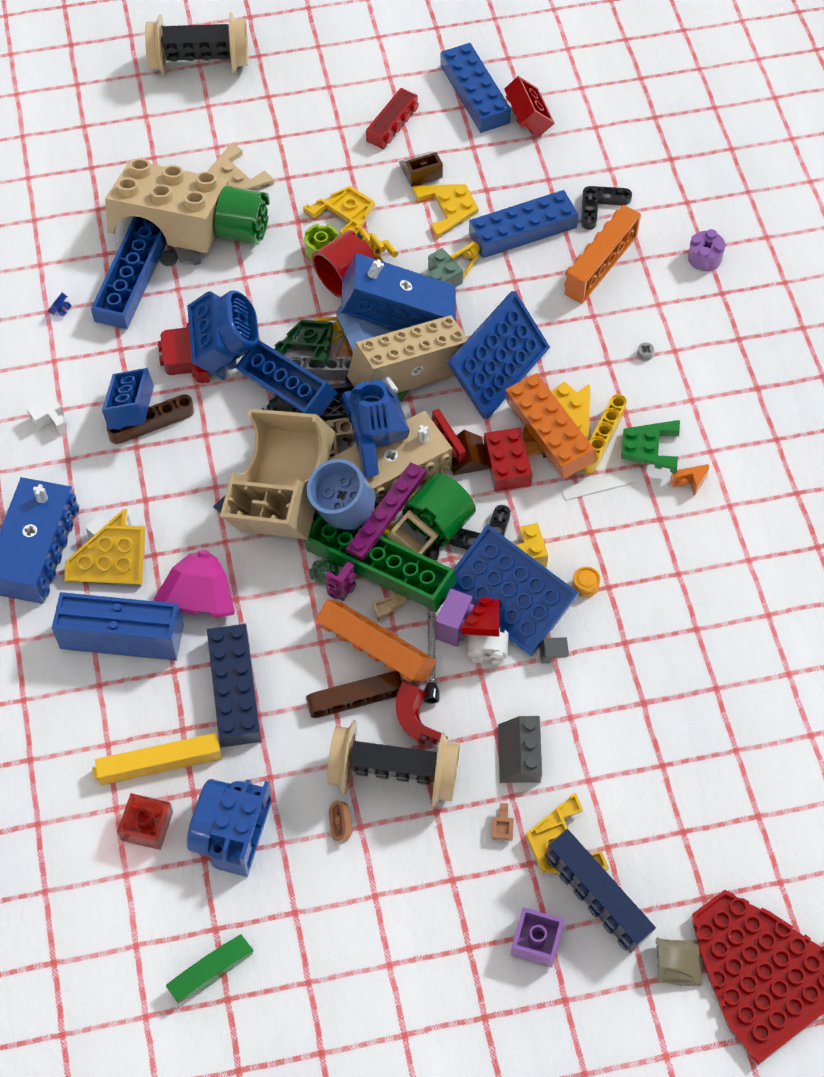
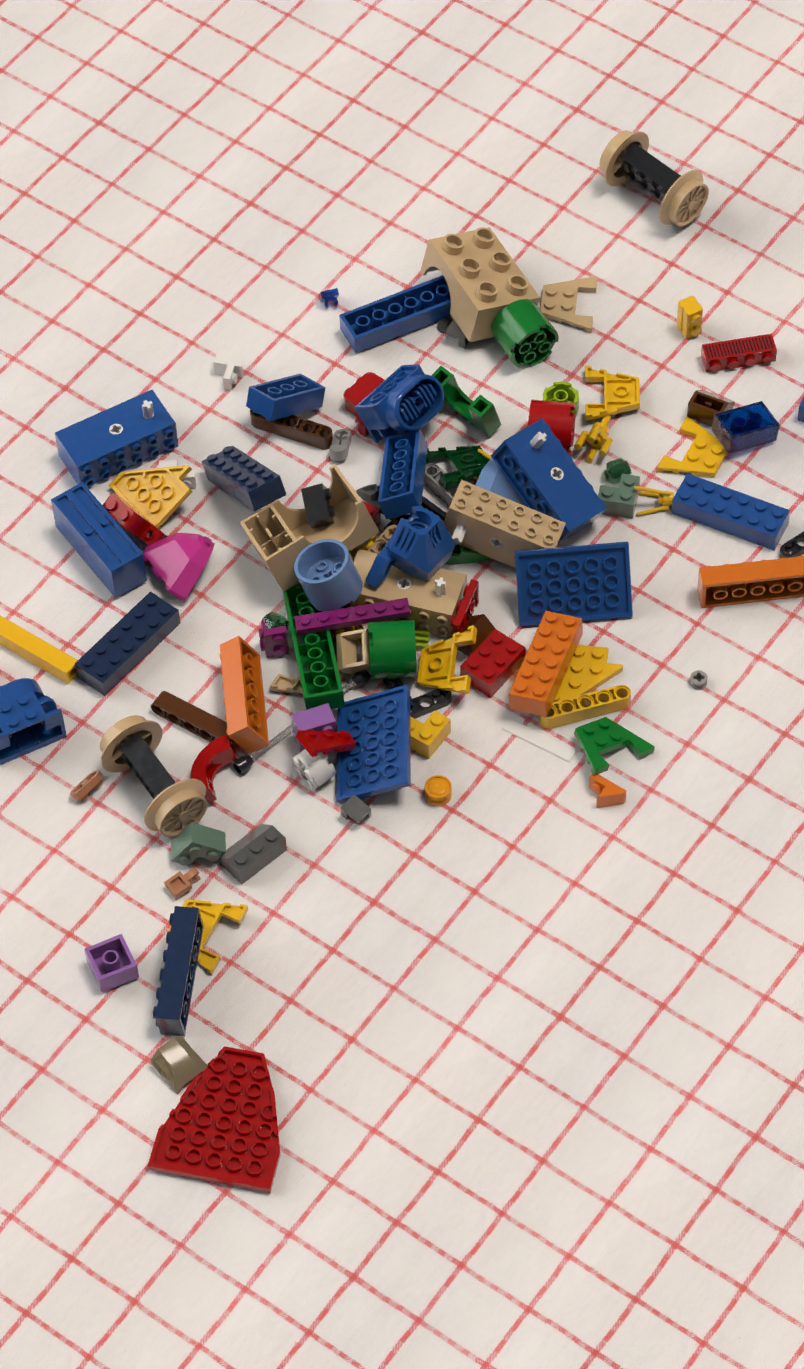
camera: 50 degrees right, 5 degrees down
(124, 587) = (132, 519): none -> red brick
(177, 482) = (243, 478): none -> dark blue brick
(202, 401) = (340, 445): none -> light grey piece
(262, 452) = (317, 505): none -> black brick
(282, 298) = (479, 412): none -> green arch
(335, 118) = (689, 317): none -> yellow brick
(416, 258) = (615, 469): none -> clear green head
(464, 160) = (745, 427): none -> clear blue brick
(483, 494) = (439, 662): none -> yellow wing
(483, 784) = (197, 842): none -> sand green brick

